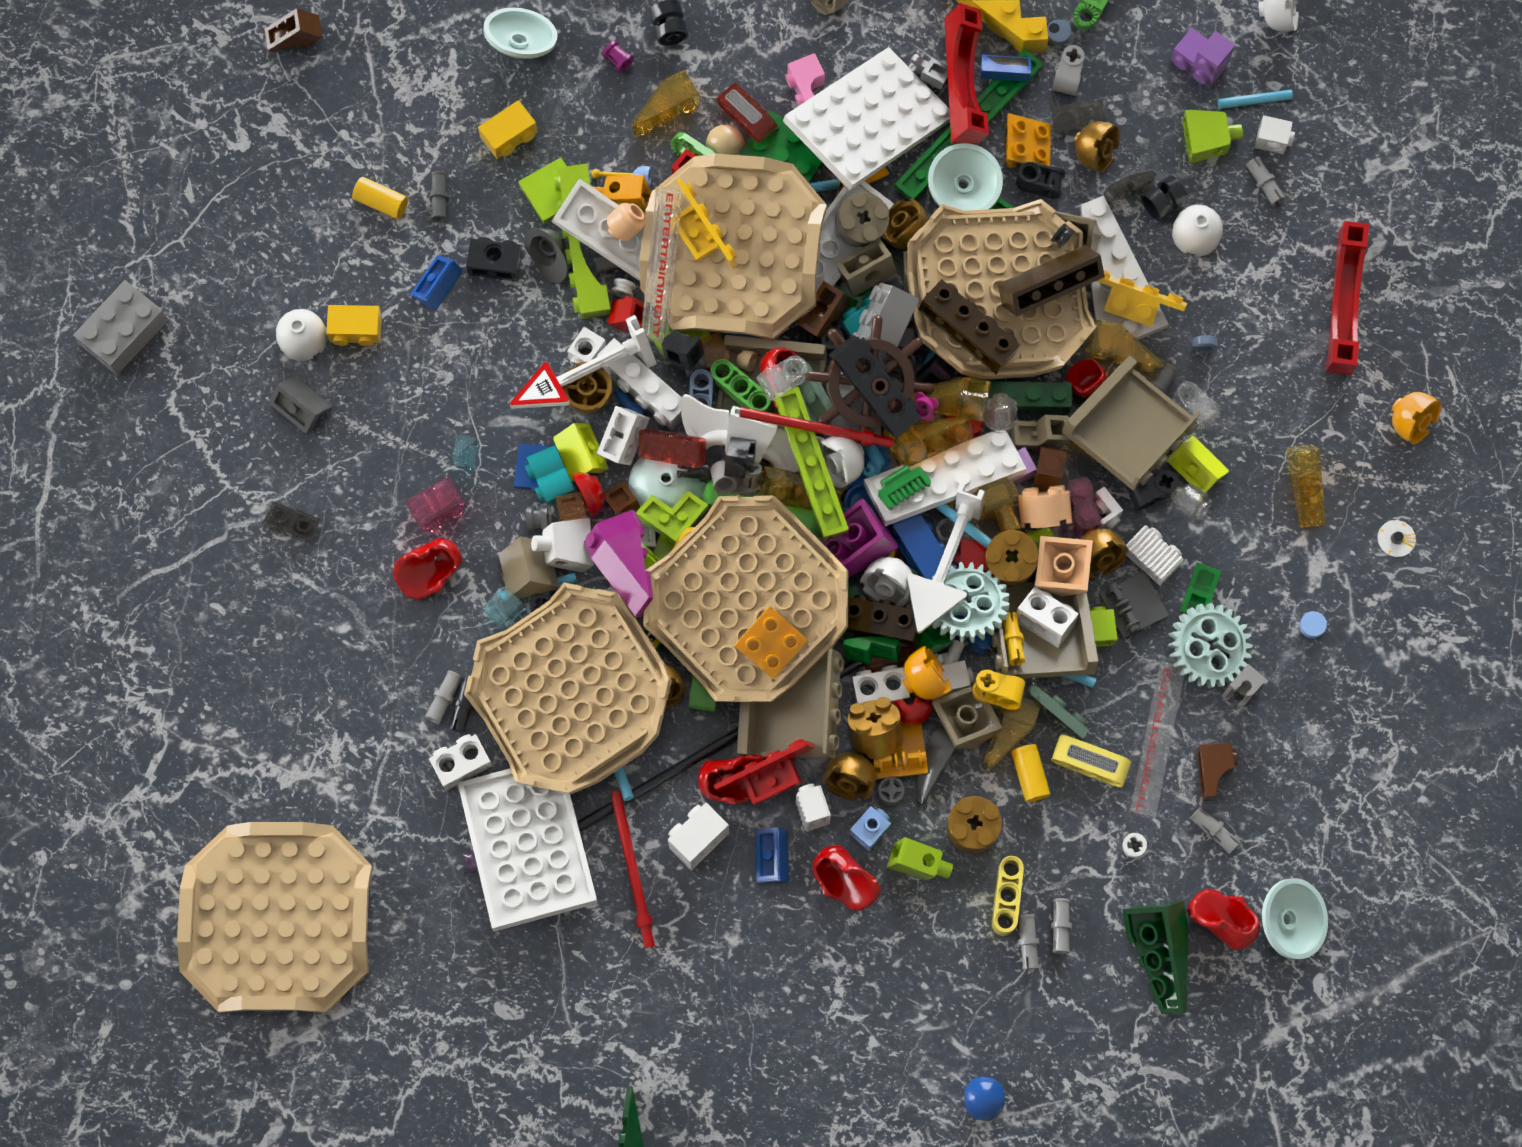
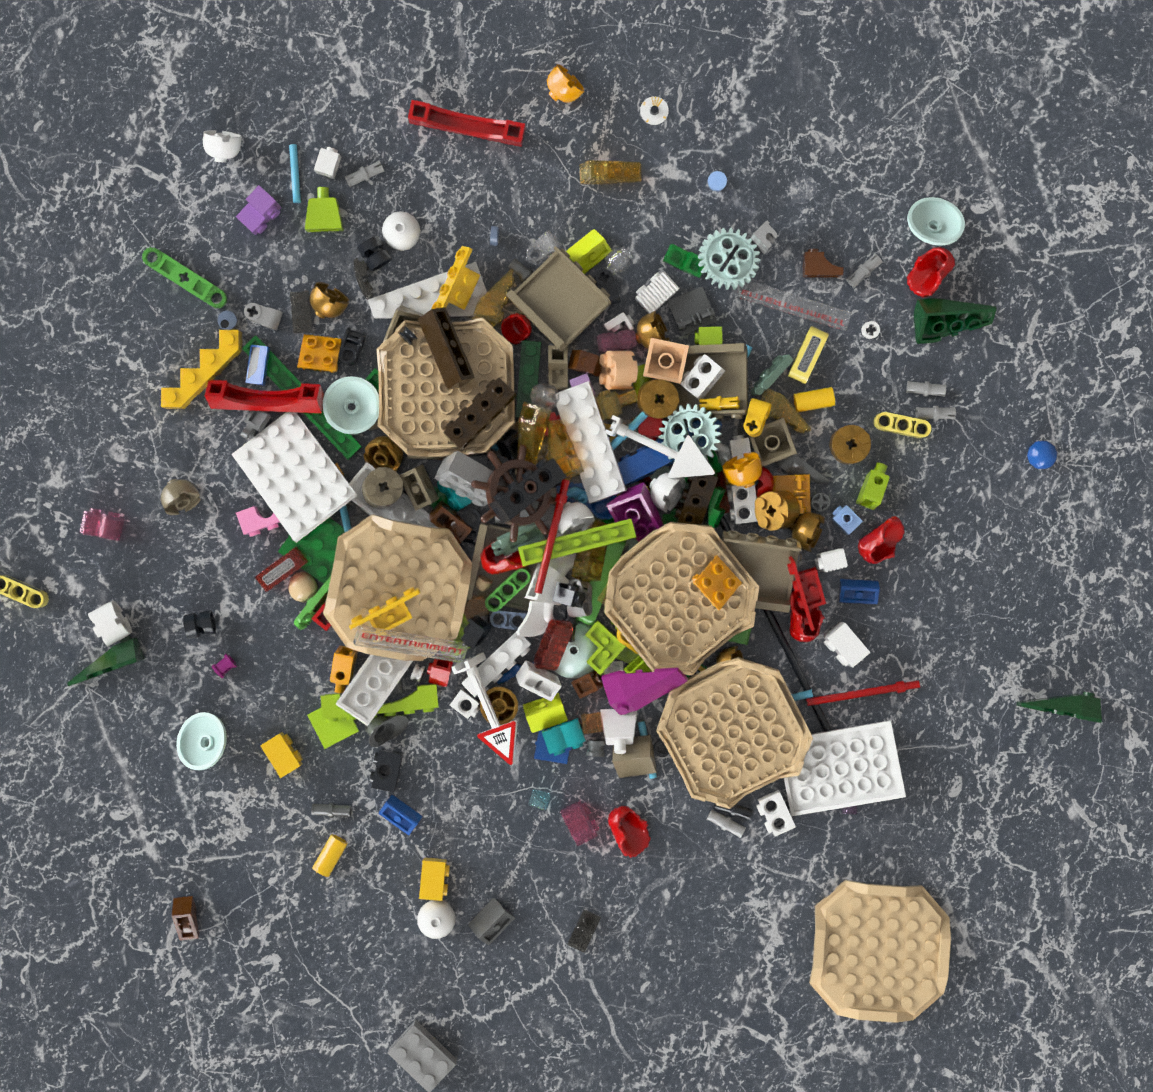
camera: 85 degrees left, 15 degrees up
(503, 608) = (663, 777): clear light blue panel -> none
(591, 492) = (580, 707): red piece -> none
(625, 221) = (374, 669): light nougat head -> none
(644, 170) = (325, 654): hinge -> none
(670, 98) = (263, 627): clear yellow slope -> none
(779, 380) = (515, 562): clear piece -> none
(898, 481) = (594, 477): green piece -> none
(931, 403) = (539, 453): dark pink plate -> none

